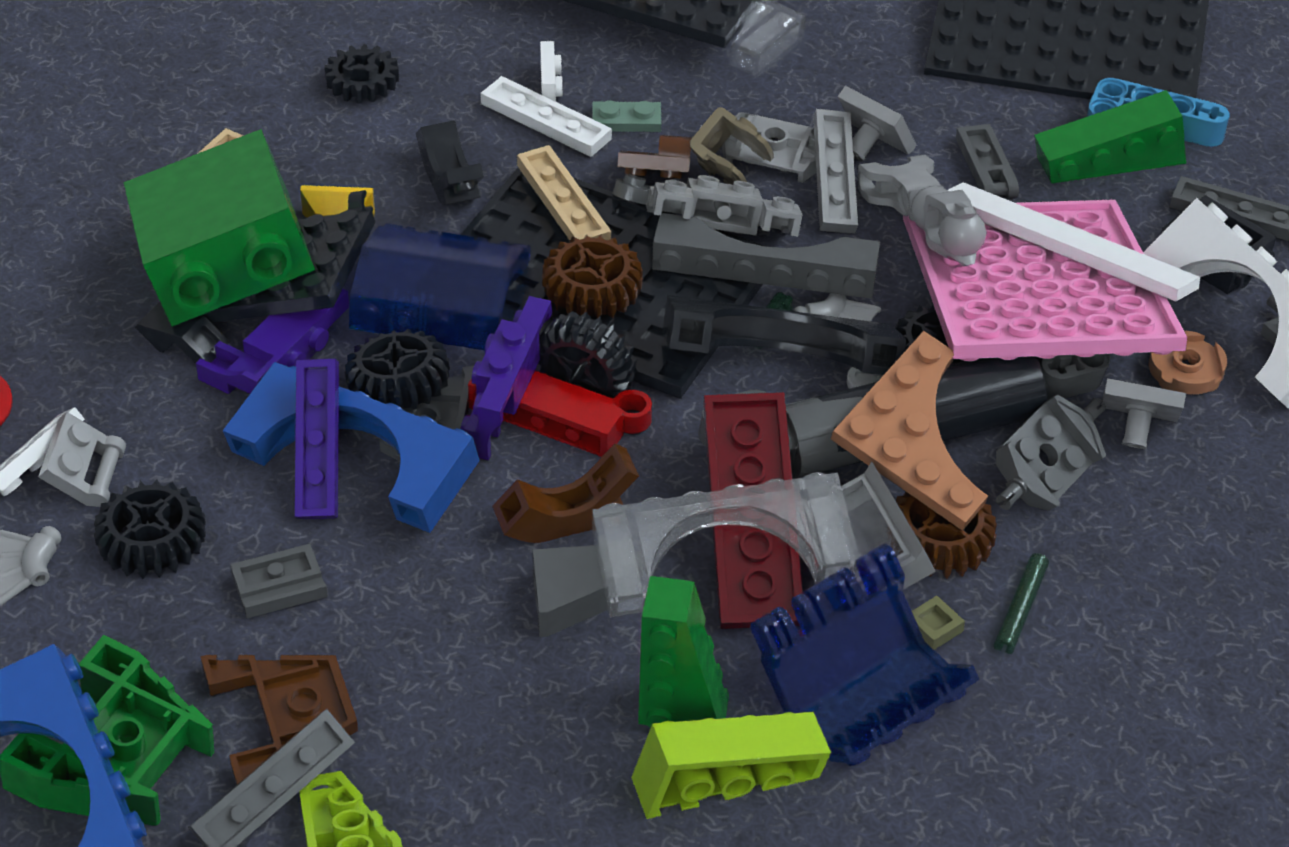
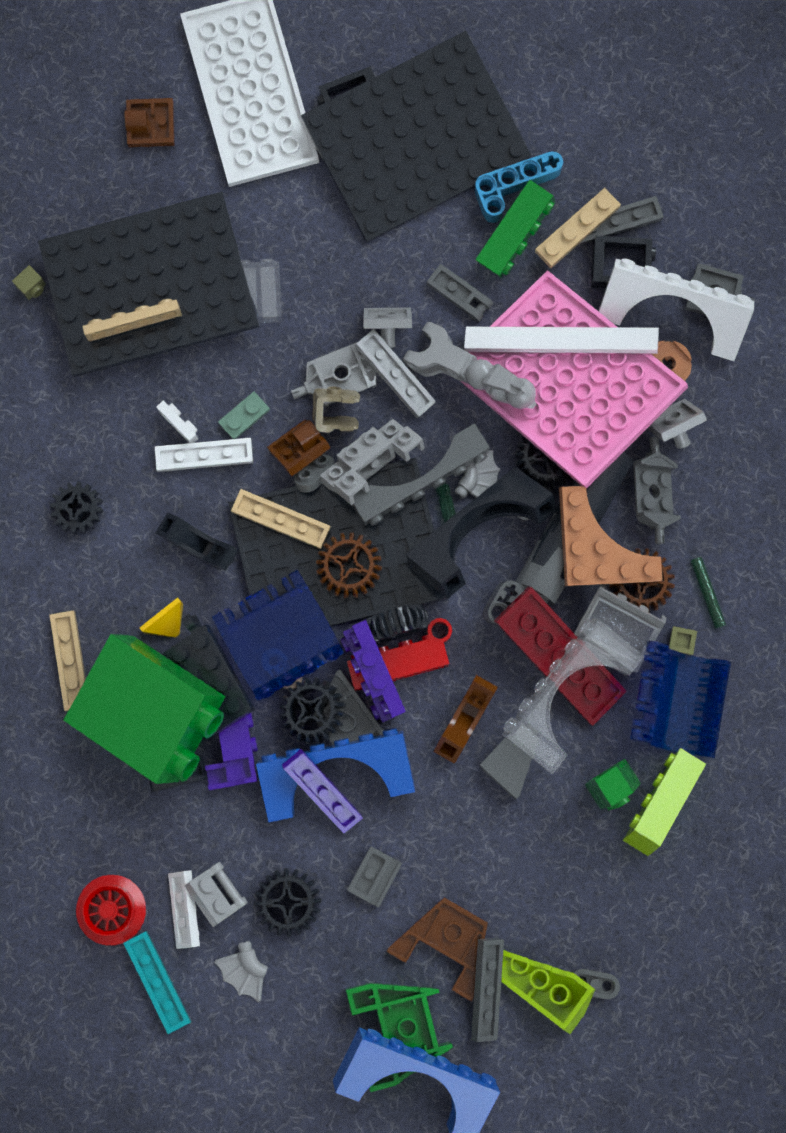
camera: 40 degrees left, 35 degrees up
(1189, 181) = (577, 228): none -> tan plate

